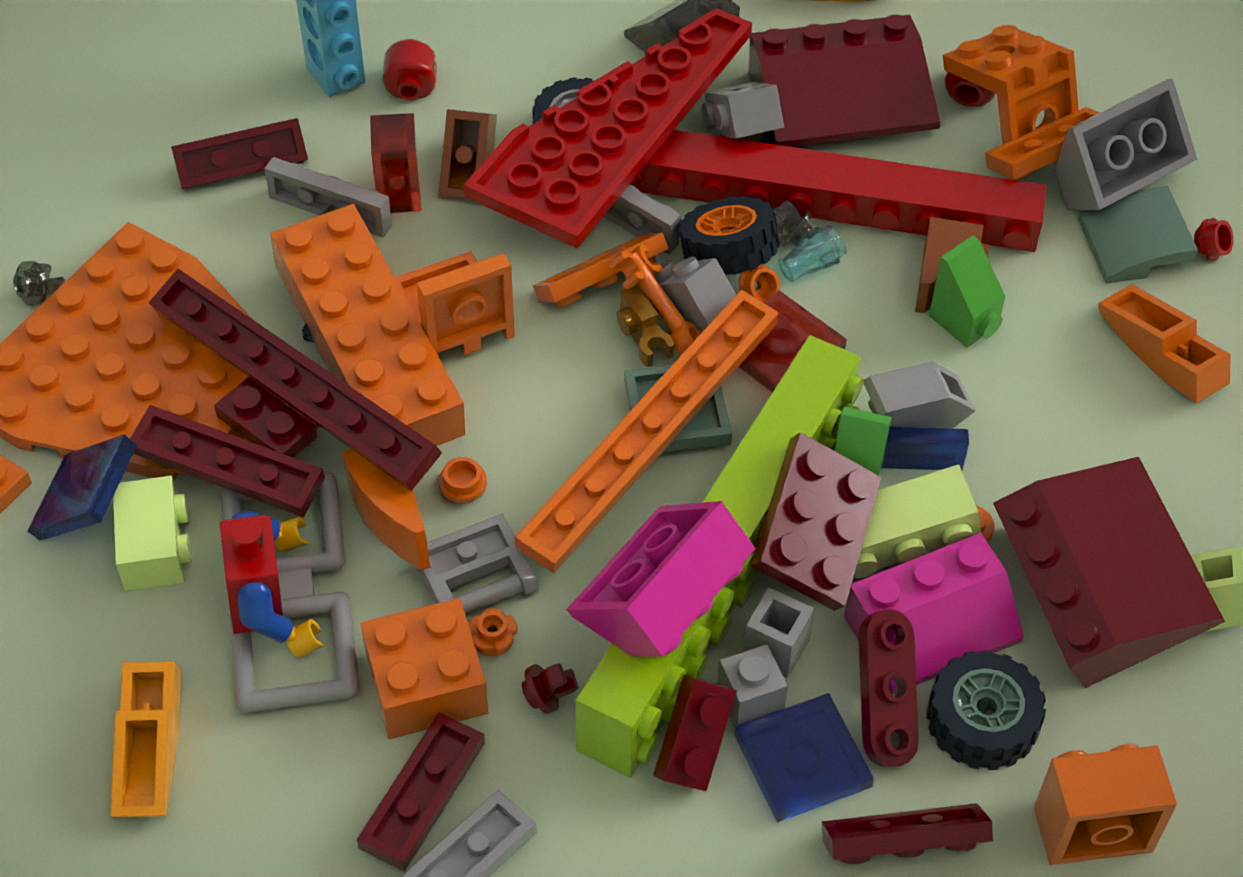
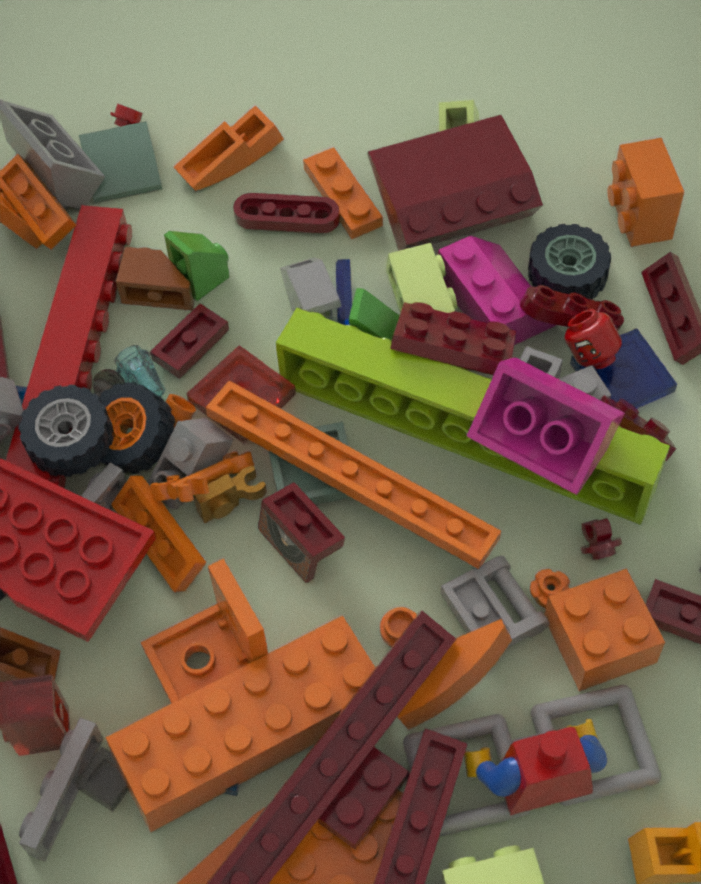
camera: 90 degrees left, 5 degrees up
(587, 382) = (298, 530): none -> dark red panel
(712, 168) = (52, 416): none -> black wheel
(832, 695) = (593, 339): none -> red head
(859, 298) = (189, 340): none -> dark red plate
(1065, 385) = (286, 213): none -> dark red plate
(1145, 441) = (337, 182): none -> orange plate

